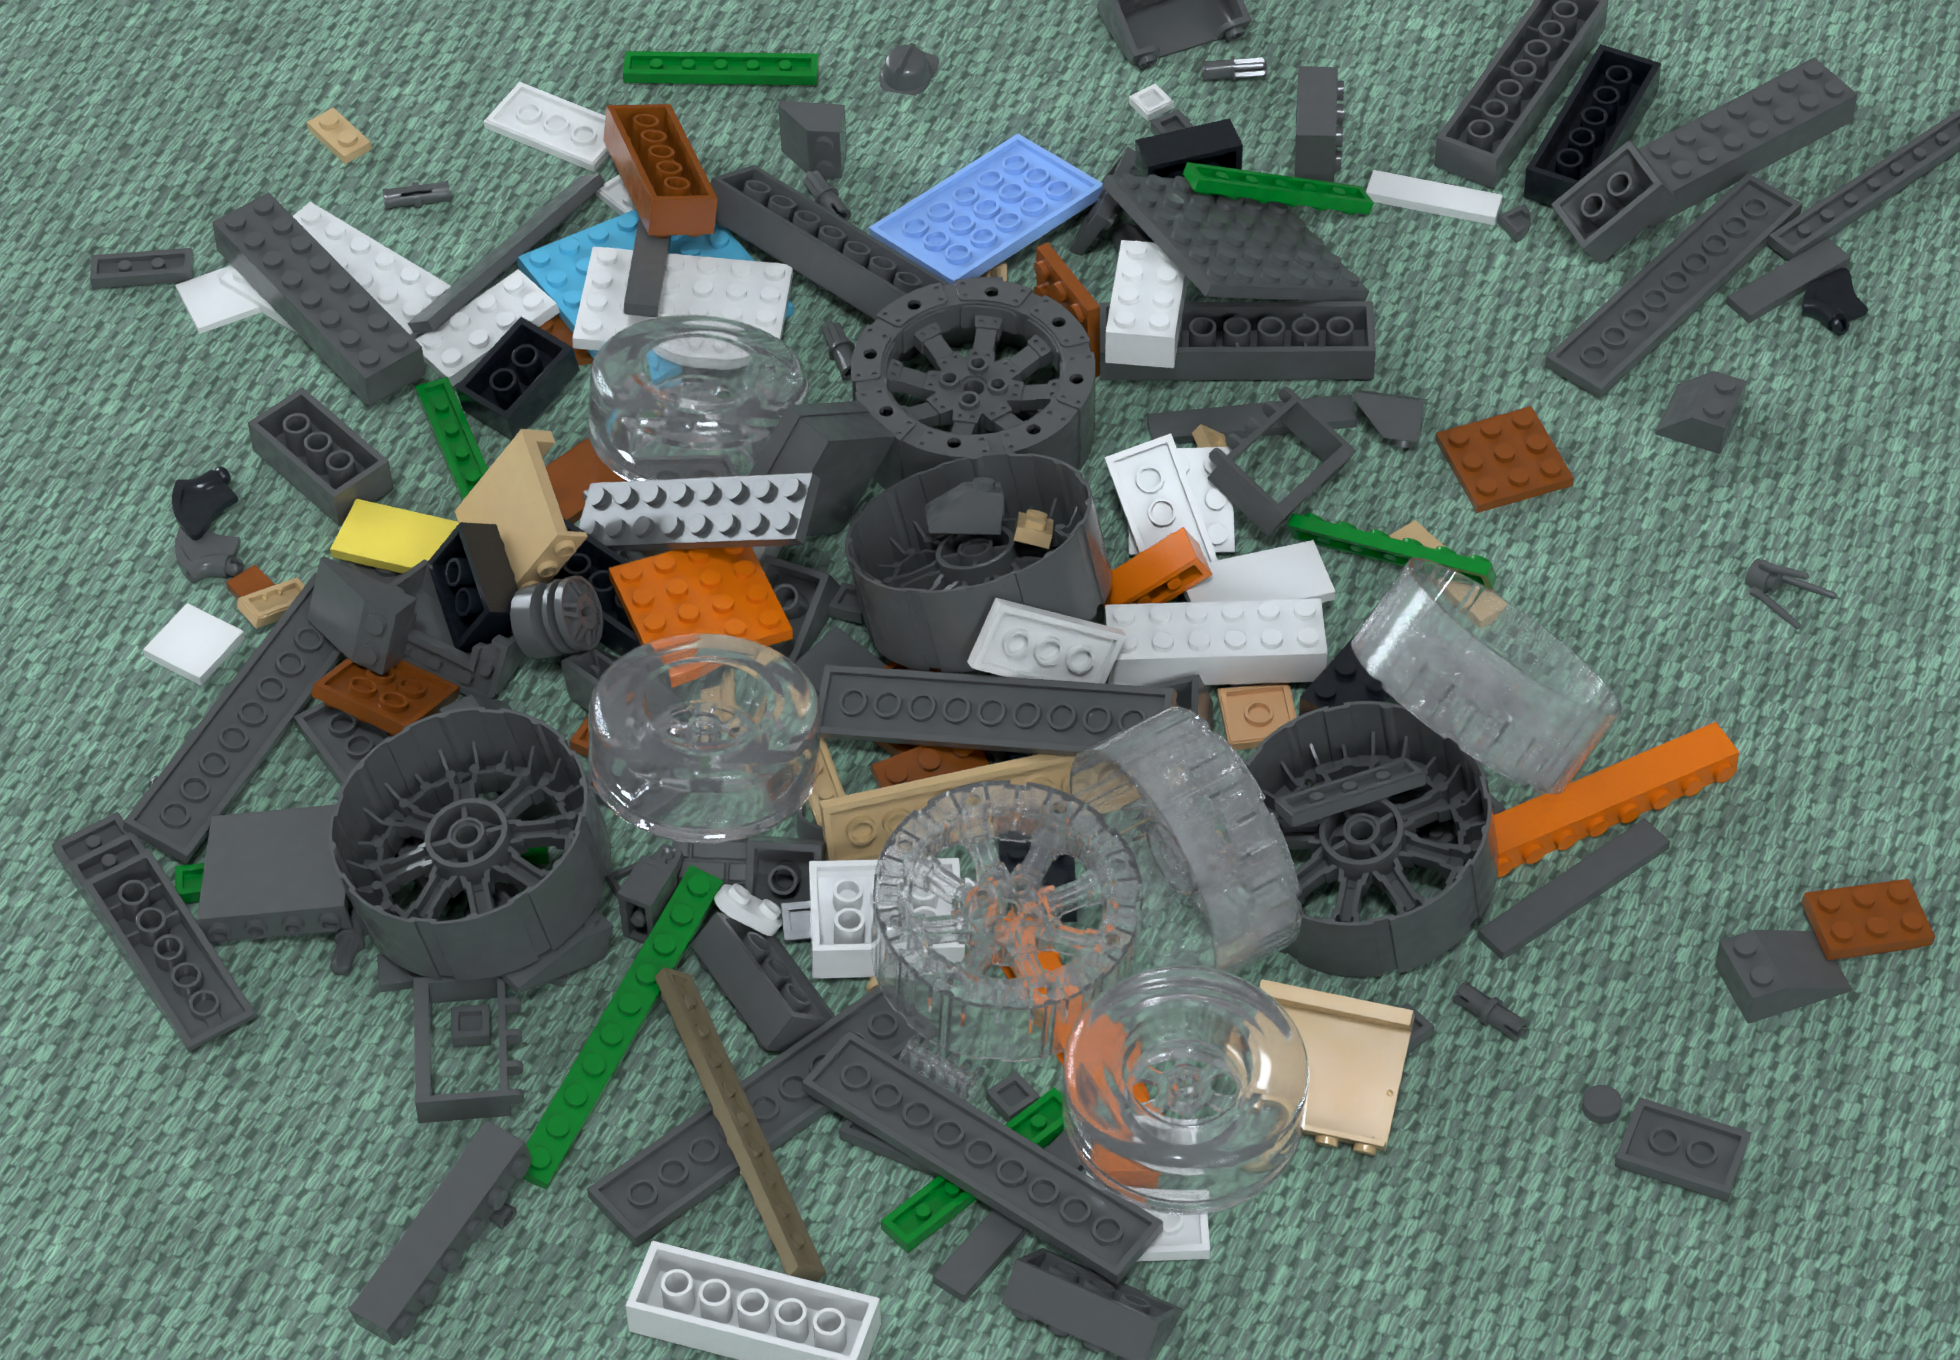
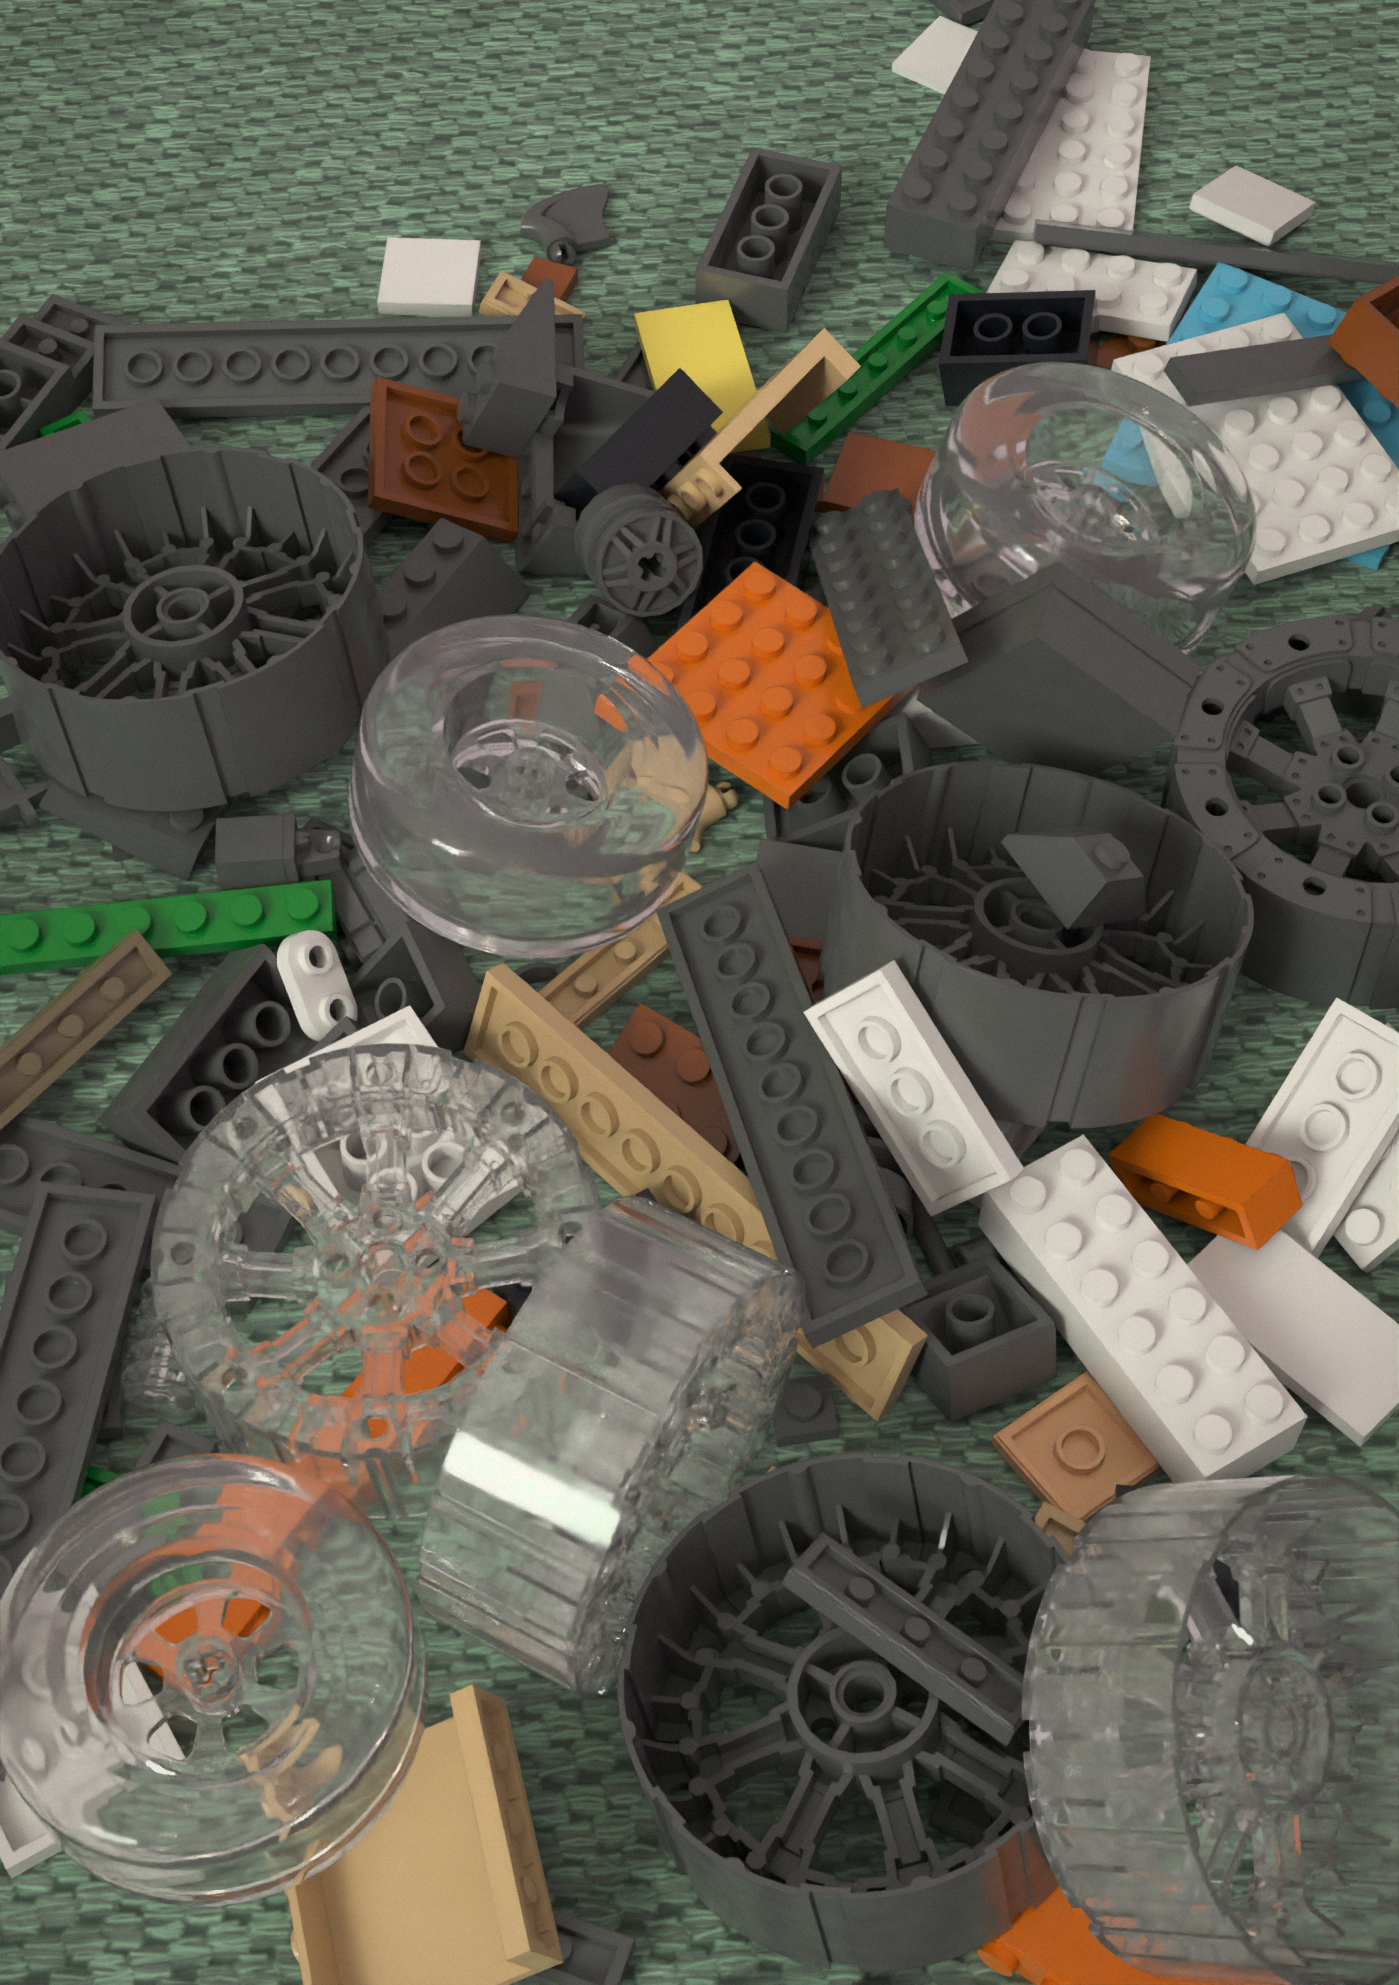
camera: 60 degrees right, 5 degrees up
(201, 500) = (639, 181): black arm -> none
(339, 135) = (1279, 38): tan plate -> none
(416, 195) = (1247, 140): dark grey pin -> none
(477, 220) = (1252, 205): none -> white tile
(1034, 528) = (1110, 964): tan plate -> none

